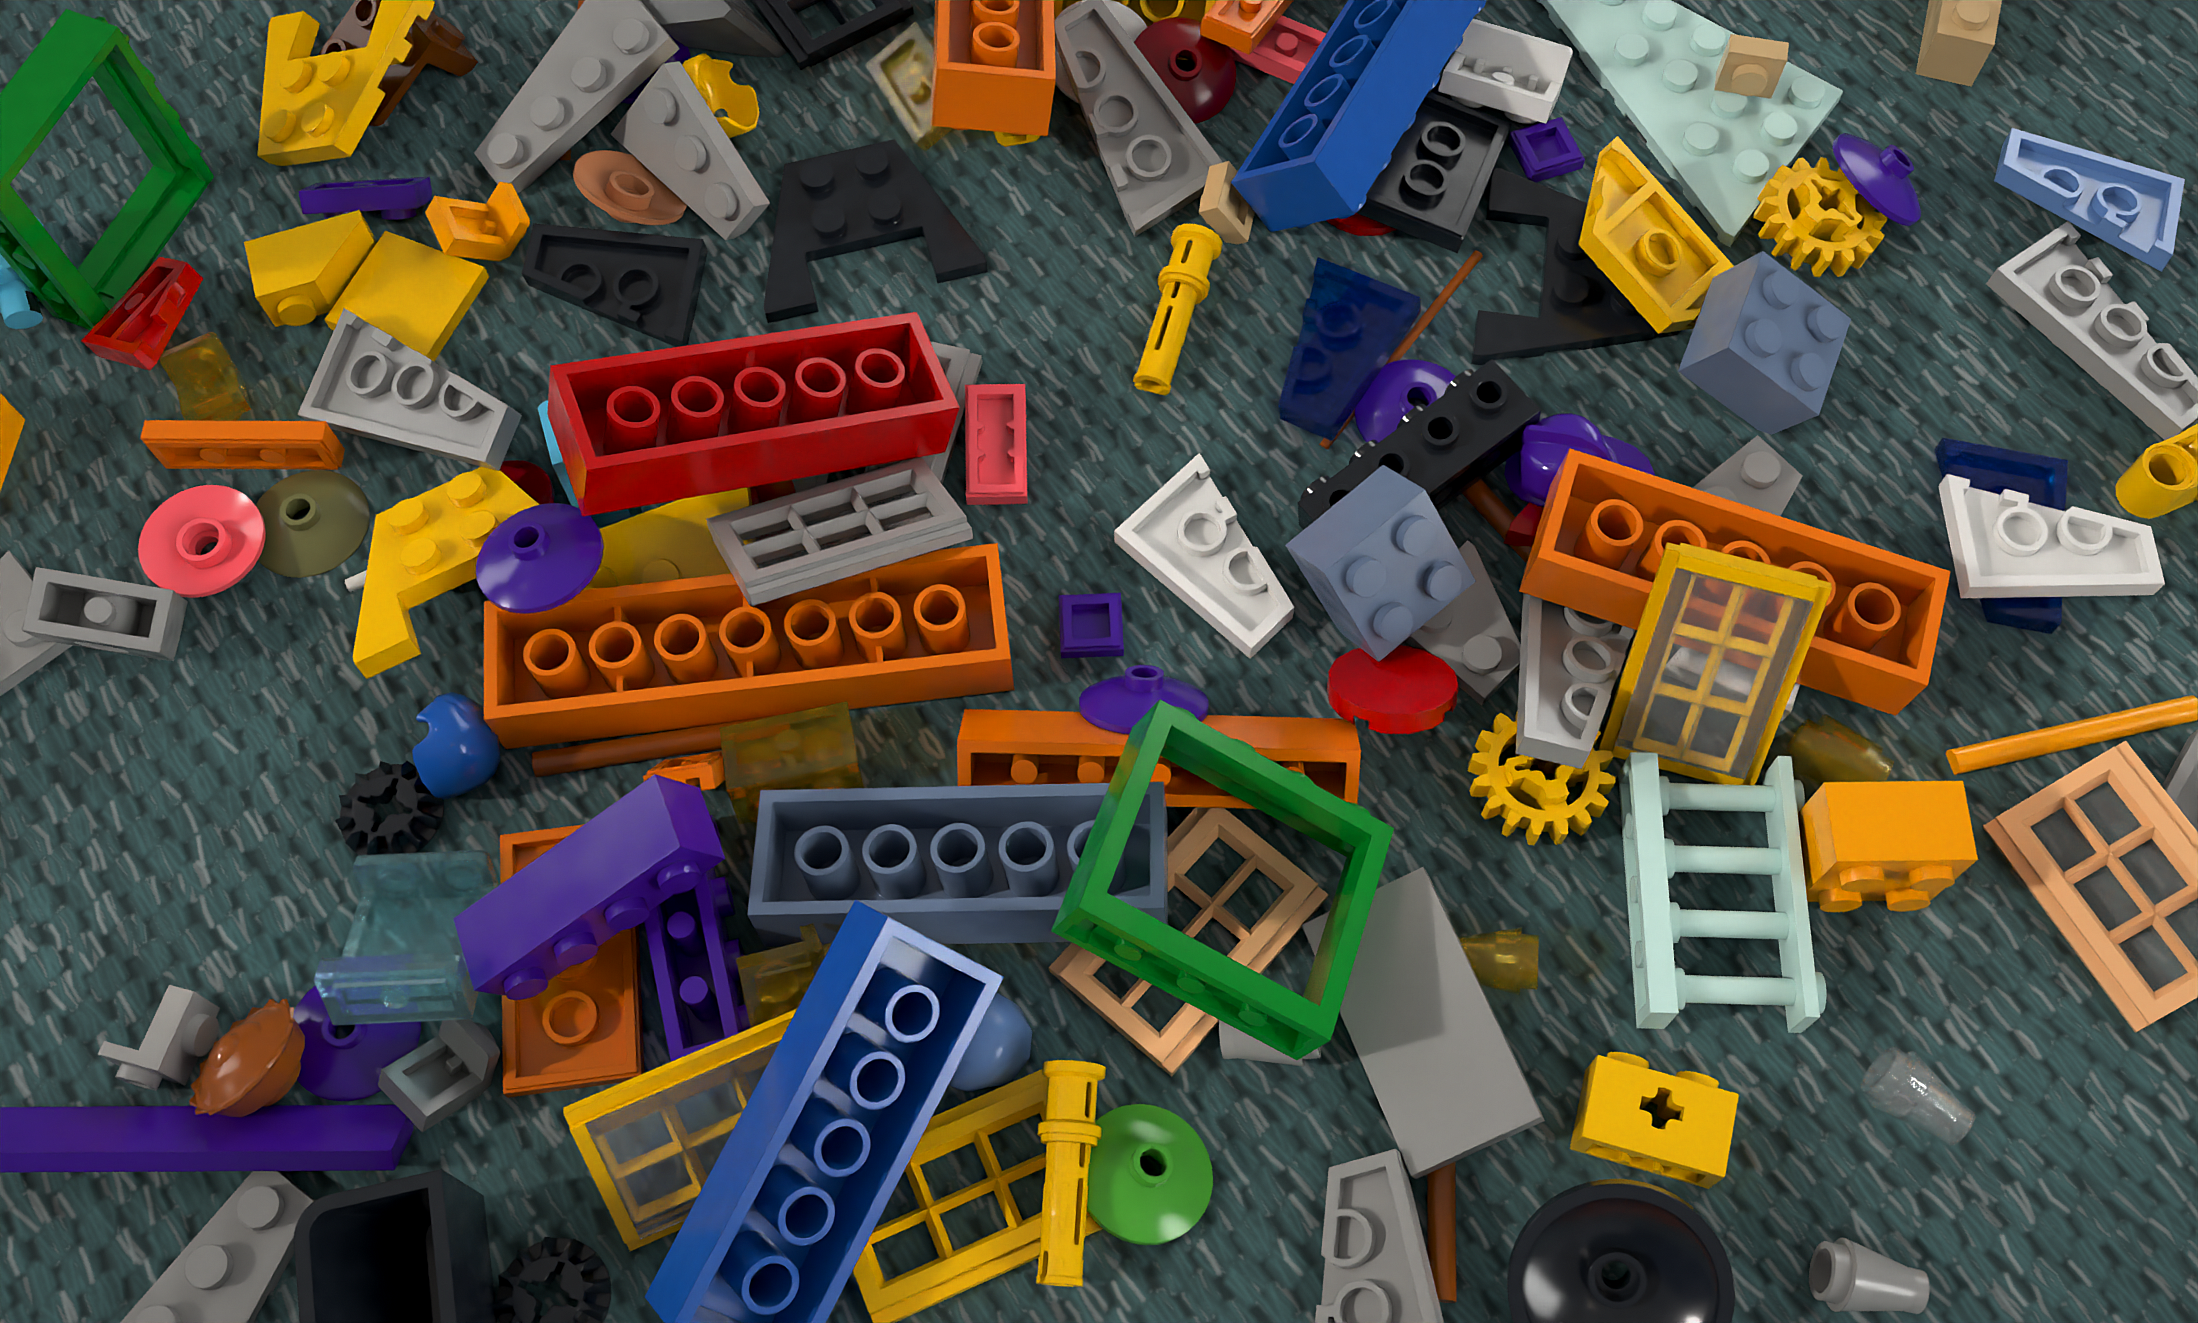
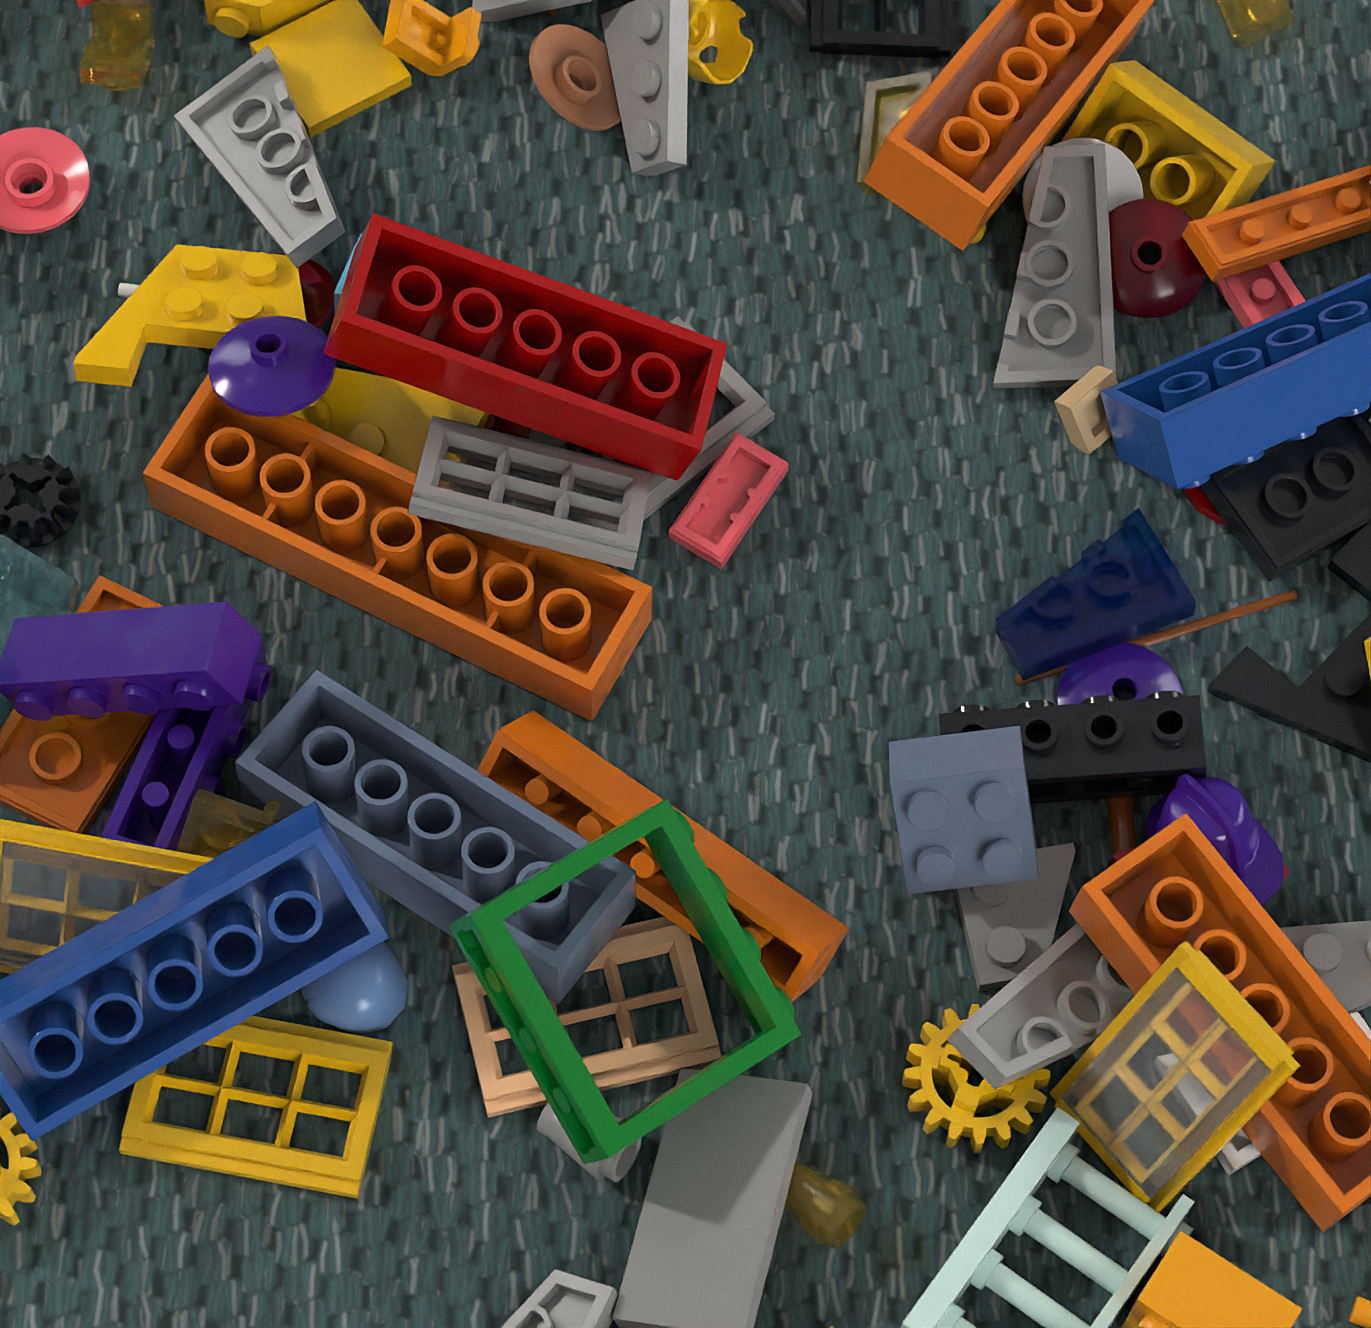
camera: 30 degrees right, 0 degrees up
(243, 444) = (114, 117): orange tile -> none
(321, 538) = (130, 234): olive dish -> none
(459, 748) = (111, 483): blue hair -> none
(620, 275) = (520, 154): black wing -> none
(630, 749) = (276, 583): dark orange bar -> none
(692, 770) = (277, 619): orange tile -> none
(789, 753) = (368, 657): clear yellow bracket -> none
(855, 204) = (761, 206): black wing -> none
(1068, 1140) = (364, 1103): yellow pin -> none
(1091, 625) = (695, 708): dark purple tile -> none
(1124, 699) = (691, 791): dark purple dish -> none
(1139, 1205) = (390, 1201): bright green dish -> none
(1182, 287) = (995, 460): yellow pin -> none
(1203, 556) = (833, 712): white wing -> none
(1396, 695) = (901, 929): red tile -> none
(1836, 753) = (1248, 1233): clear yellow brick -> none

